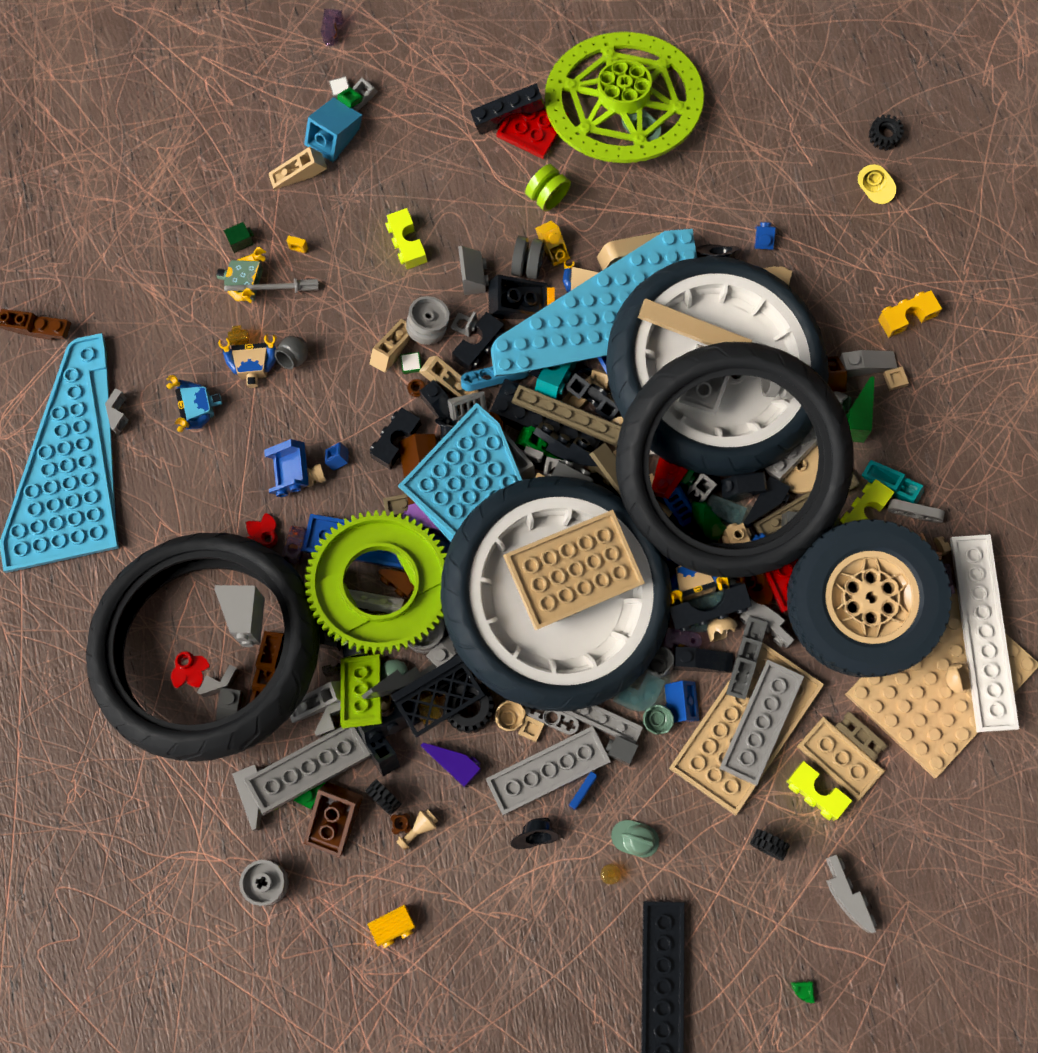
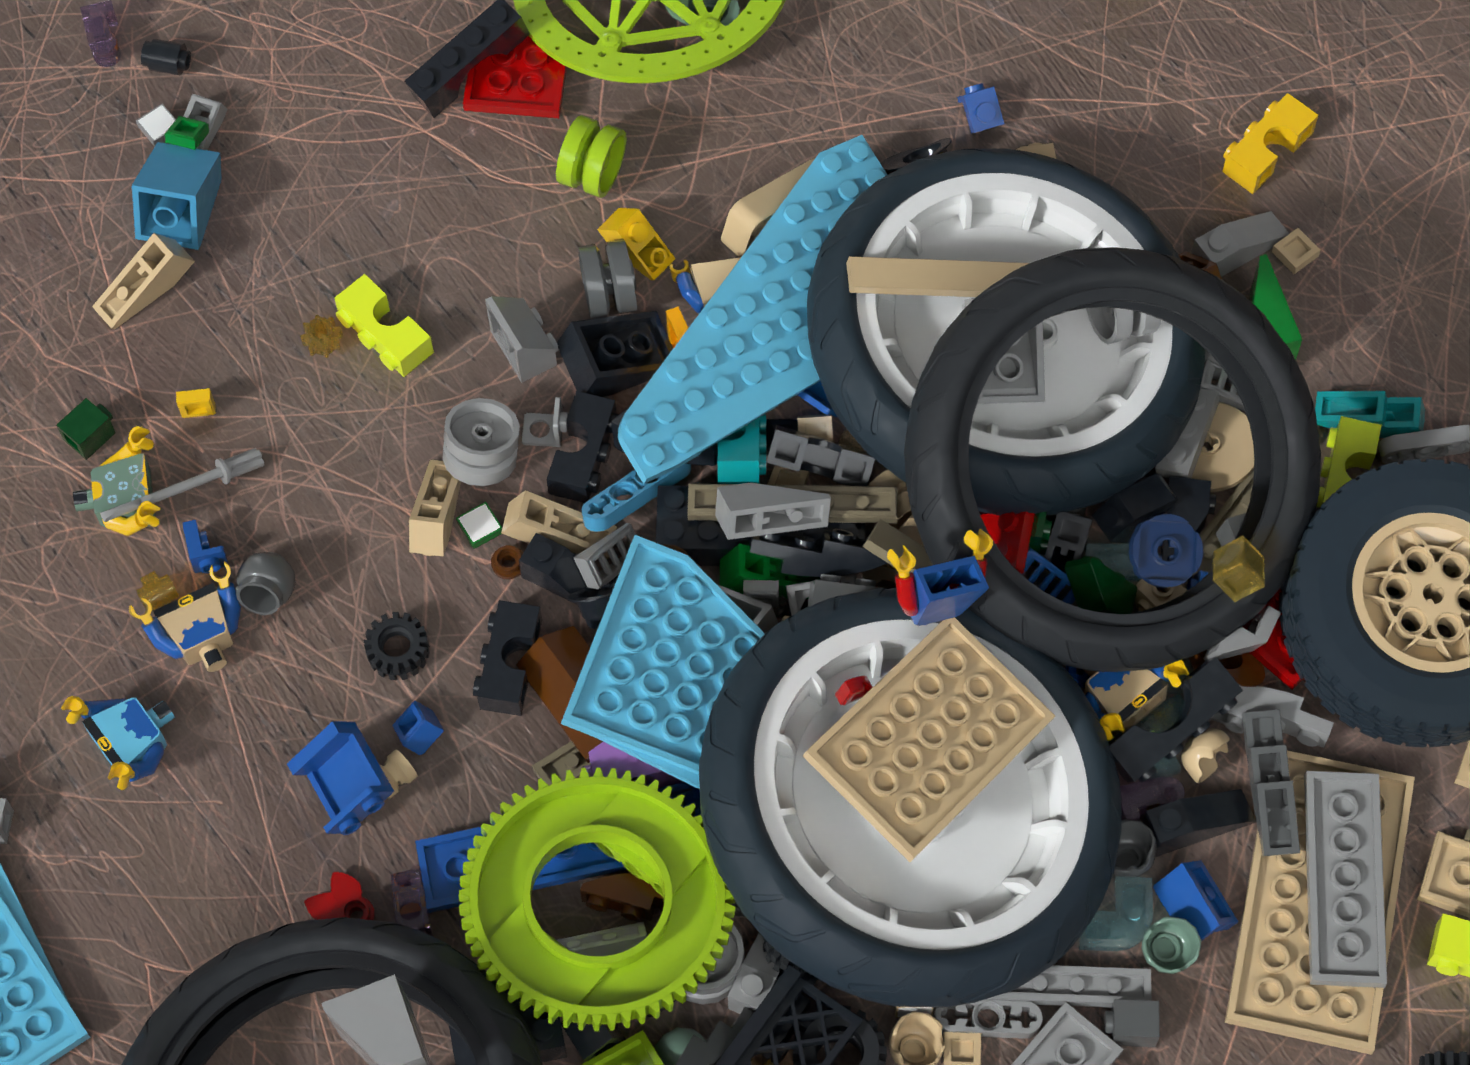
camera: 25 degrees left, 10 degrees down
(268, 321) = (199, 549): none -> blue bracket
(338, 400) = (397, 627): none -> black tyre
(357, 51) = (165, 56): none -> black brick
(376, 236) = (321, 336): none -> clear yellow gear
(544, 531) = (853, 690): none -> red tile
(548, 414) = (768, 509): none -> light grey slope
(612, 497) = (944, 588): none -> blue torso
(733, 510) = (1149, 564): none -> dark blue plate
(764, 579) = (1245, 640): none -> light grey slope
(772, 545) = (1238, 568): none -> clear yellow panel

